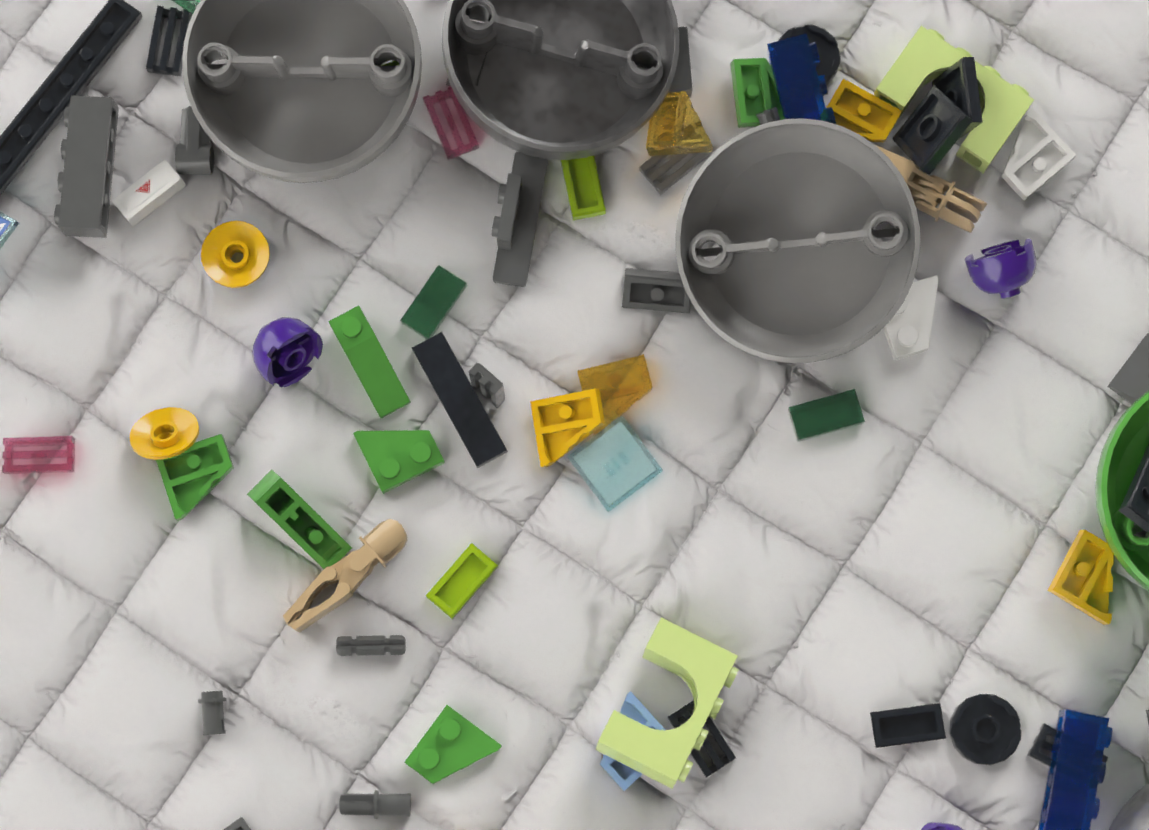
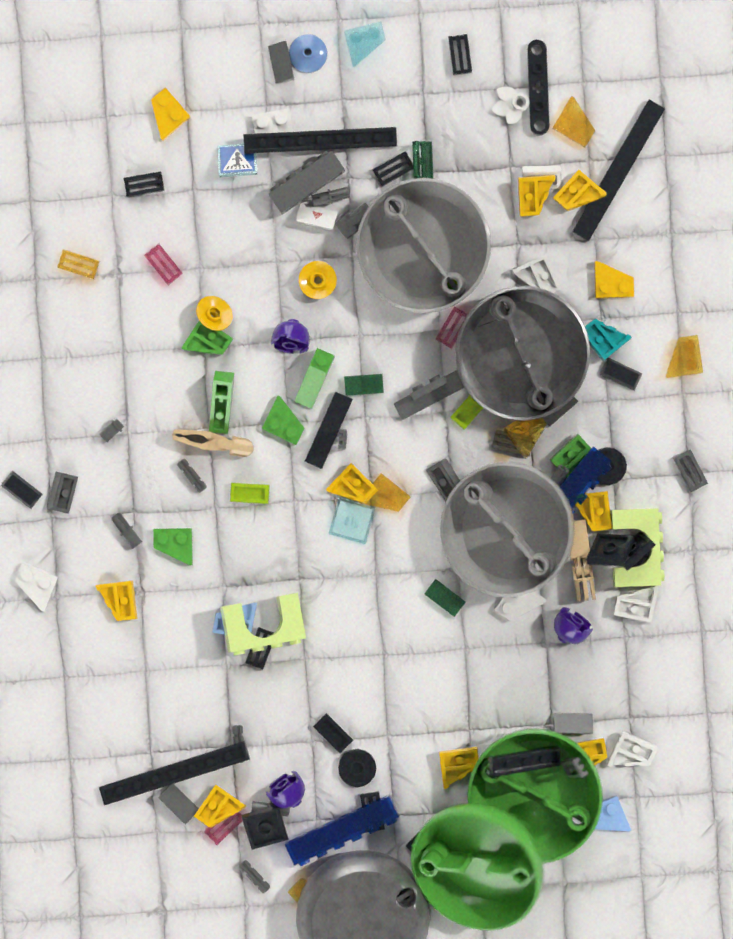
camera: 55 degrees right, 10 degrees up
(135, 151) = (330, 196): none -> dark grey axle

